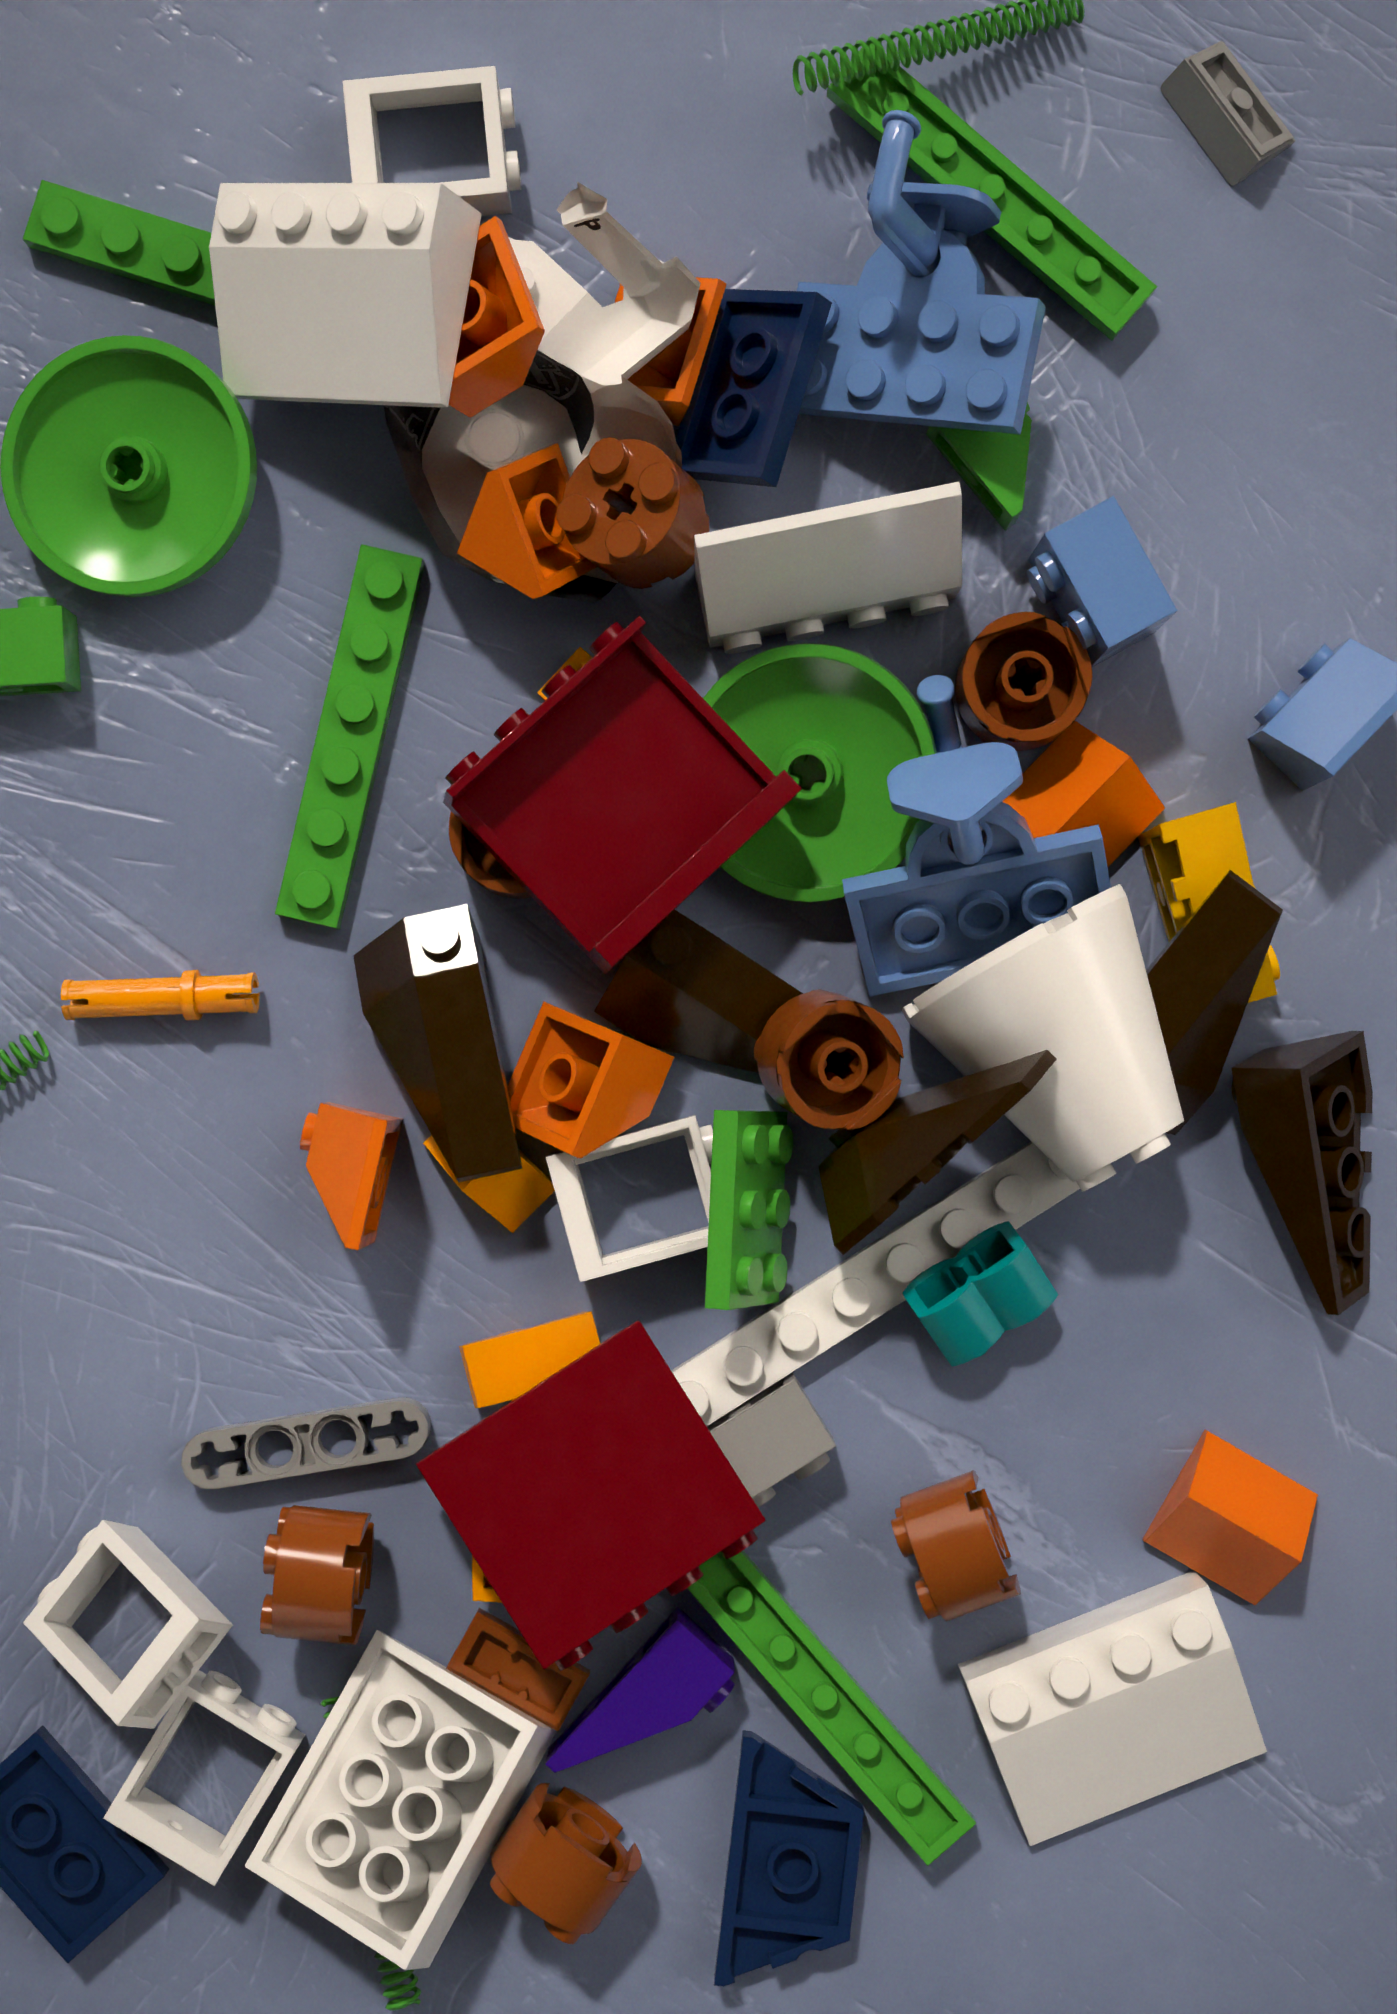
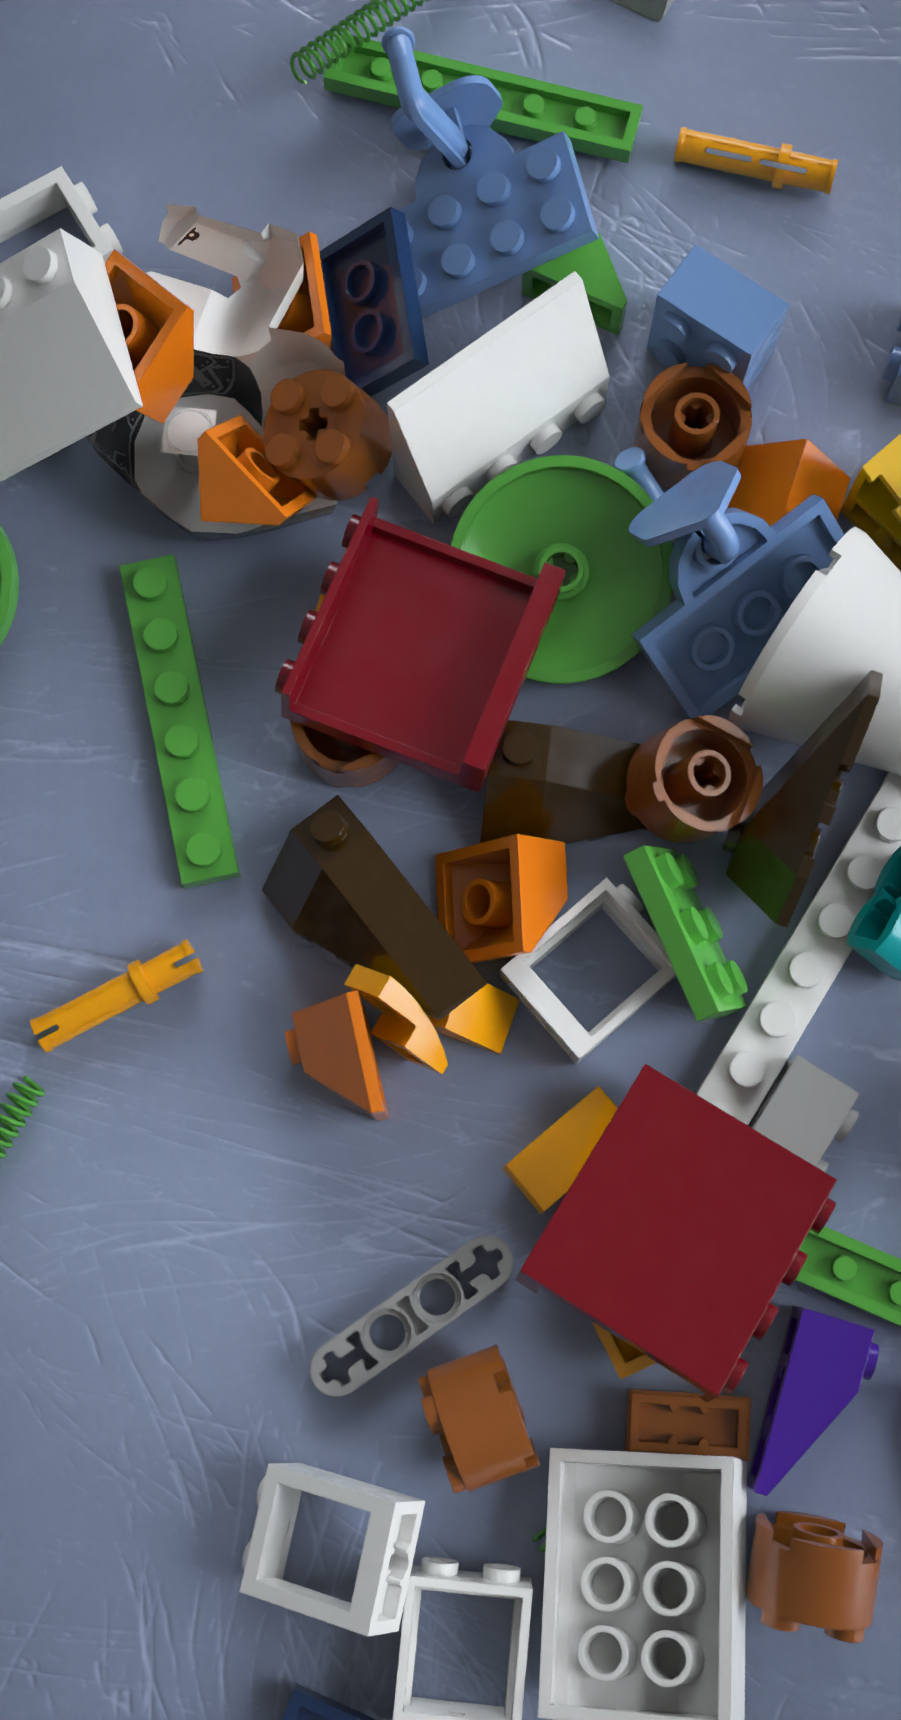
camera: 25 degrees left, 10 degrees down
(421, 1160) = (402, 1022): none -> light orange slope
(1248, 406) = (692, 149): none -> light orange pin

